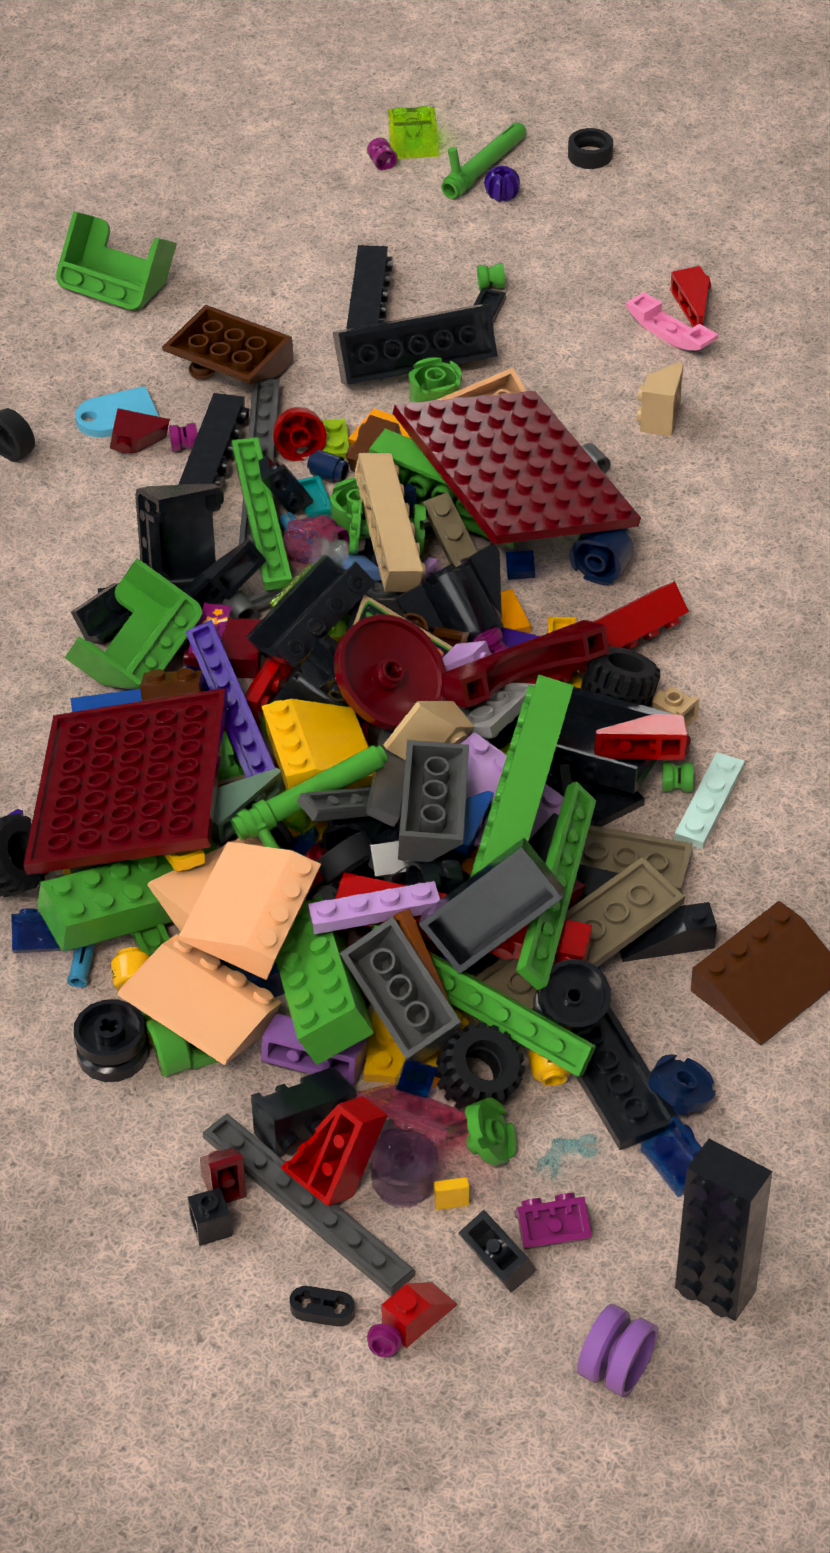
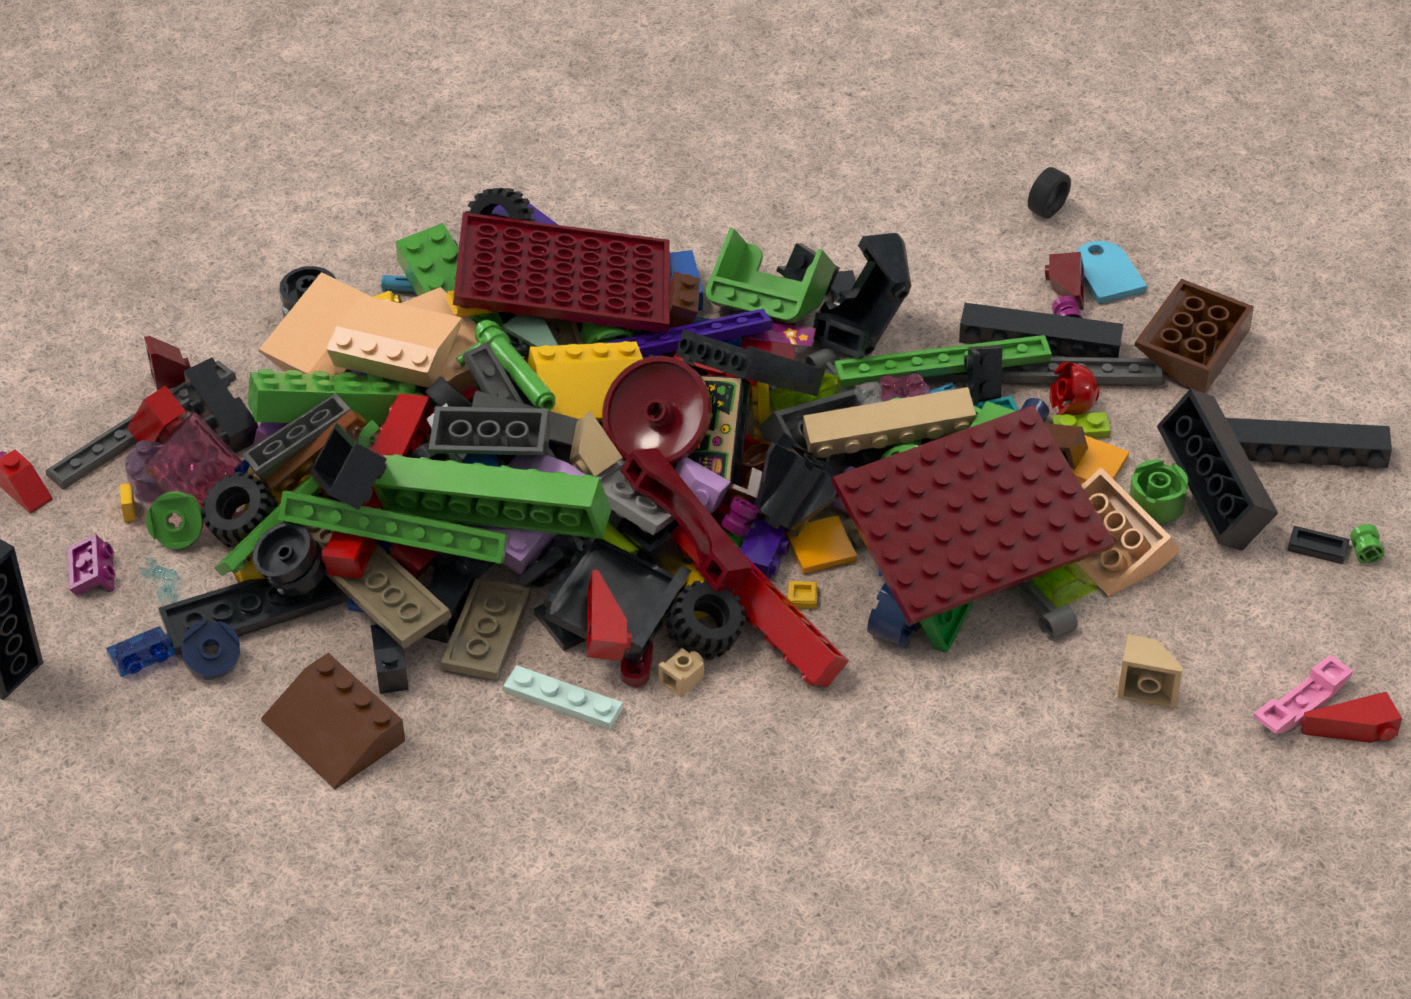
camera: 90 degrees right, 0 degrees up
(107, 273) = (1327, 242): bright green windscreen -> none
(210, 1216) = (129, 362): black brick -> none
(322, 1306) = (46, 434): black beam -> none
(371, 907) = (383, 413): lavender plate -> none
(497, 1251) = (44, 524): black brick -> none
(670, 776) = (587, 670): bright green wheel -> none

